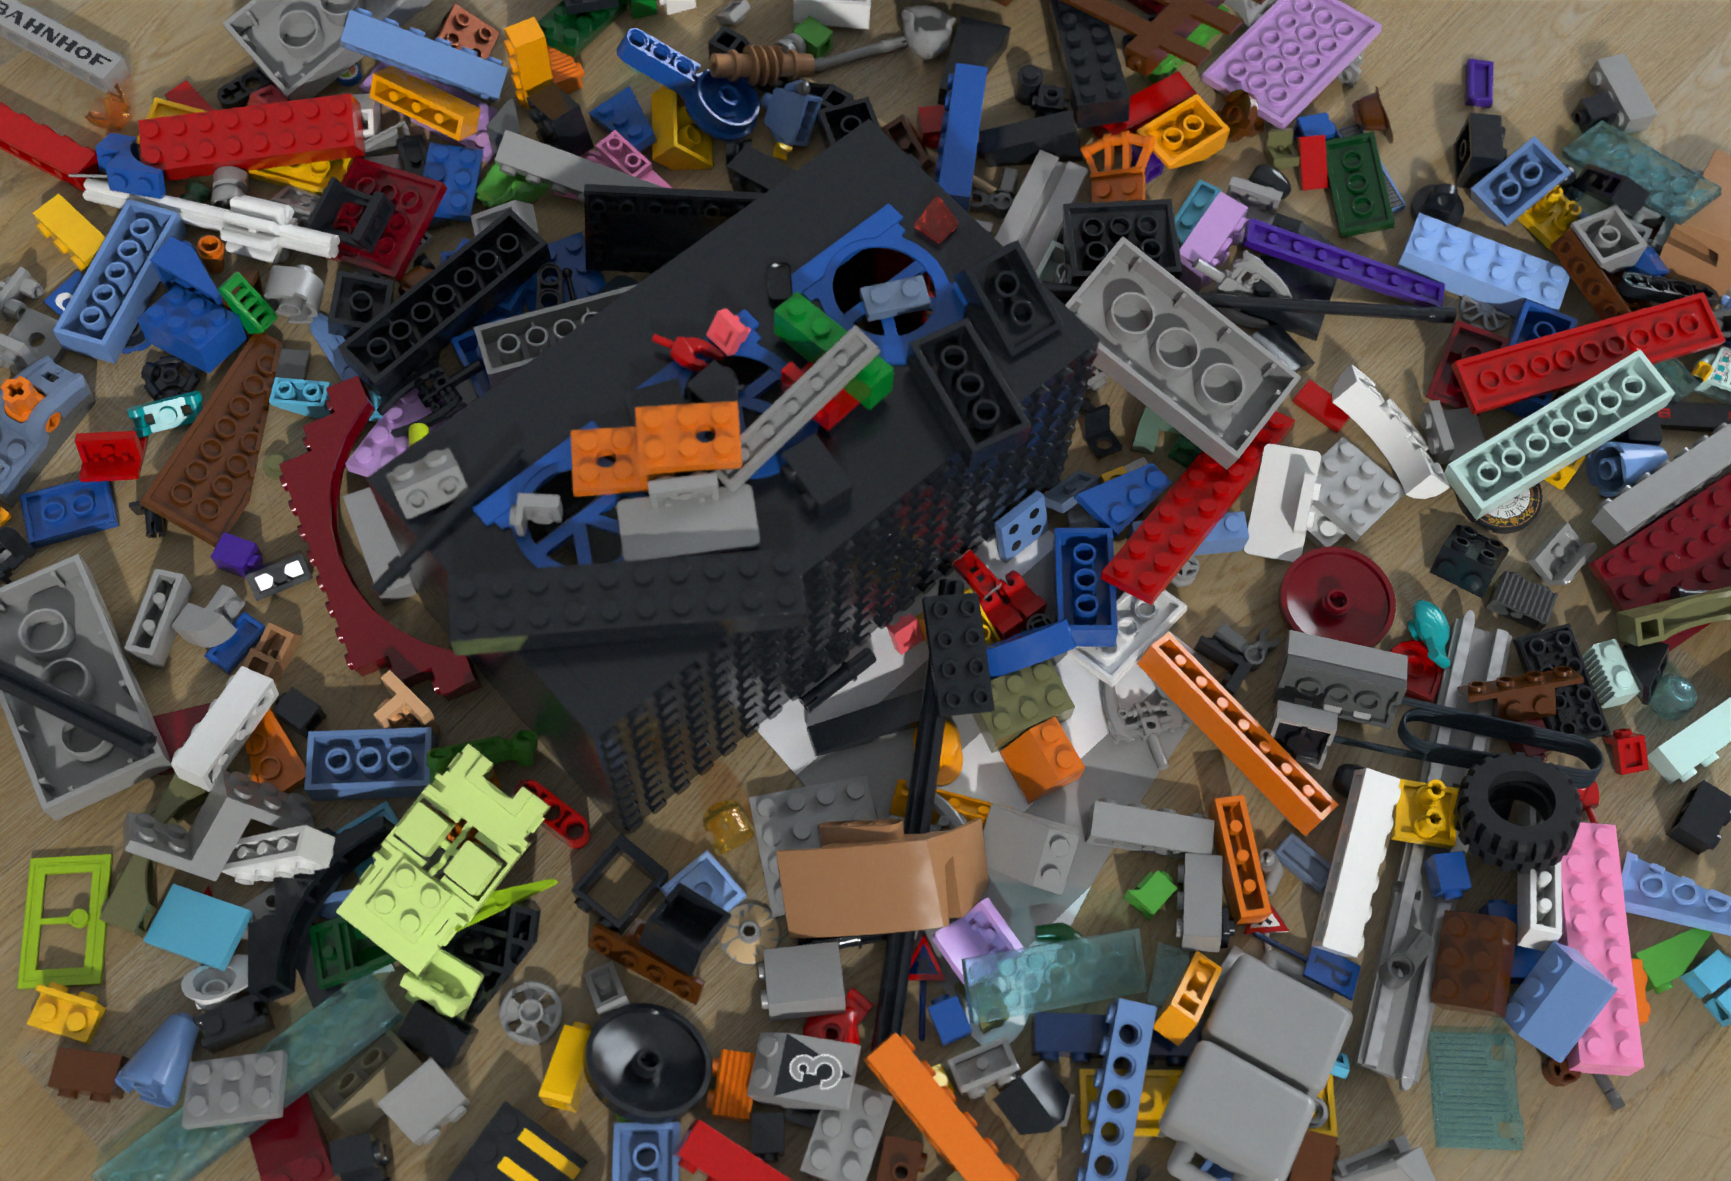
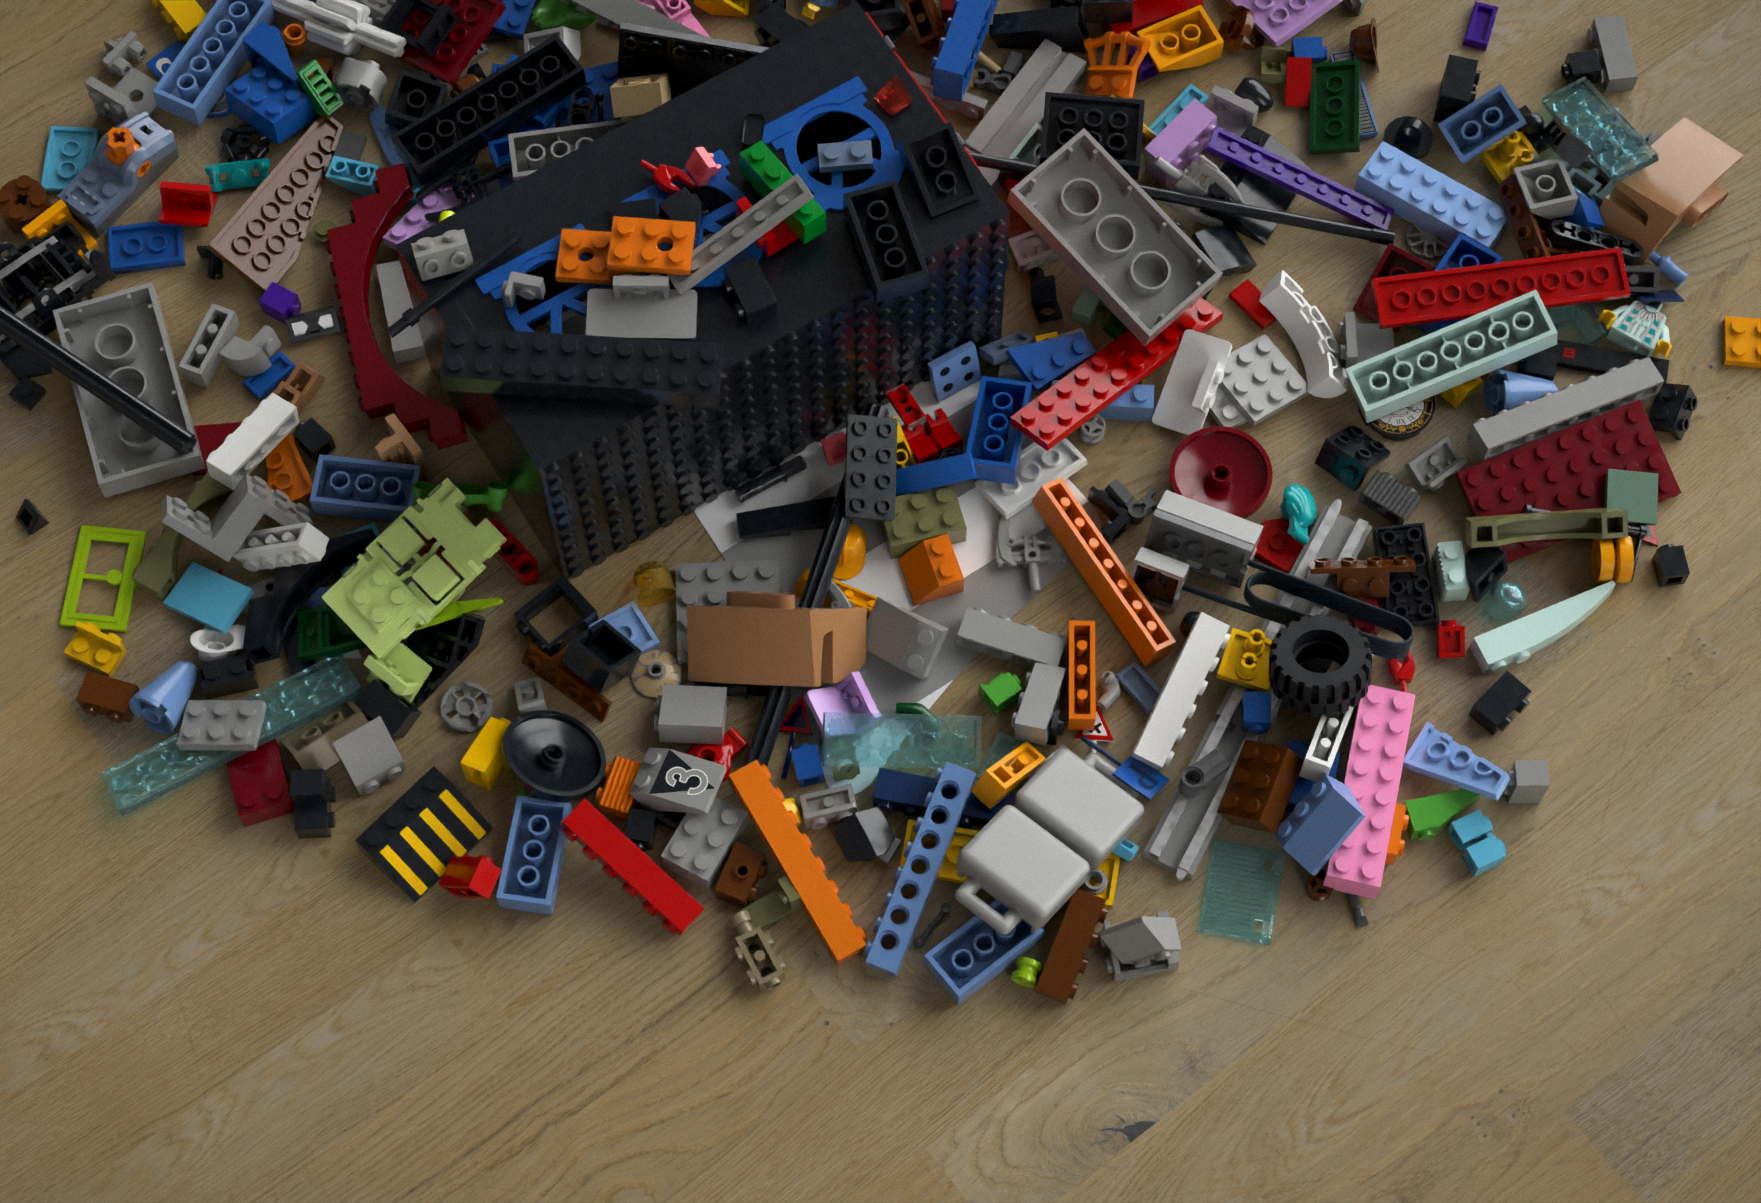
camera: 15 degrees right, 0 degrees up
(617, 265) = (639, 95): none -> tan brick

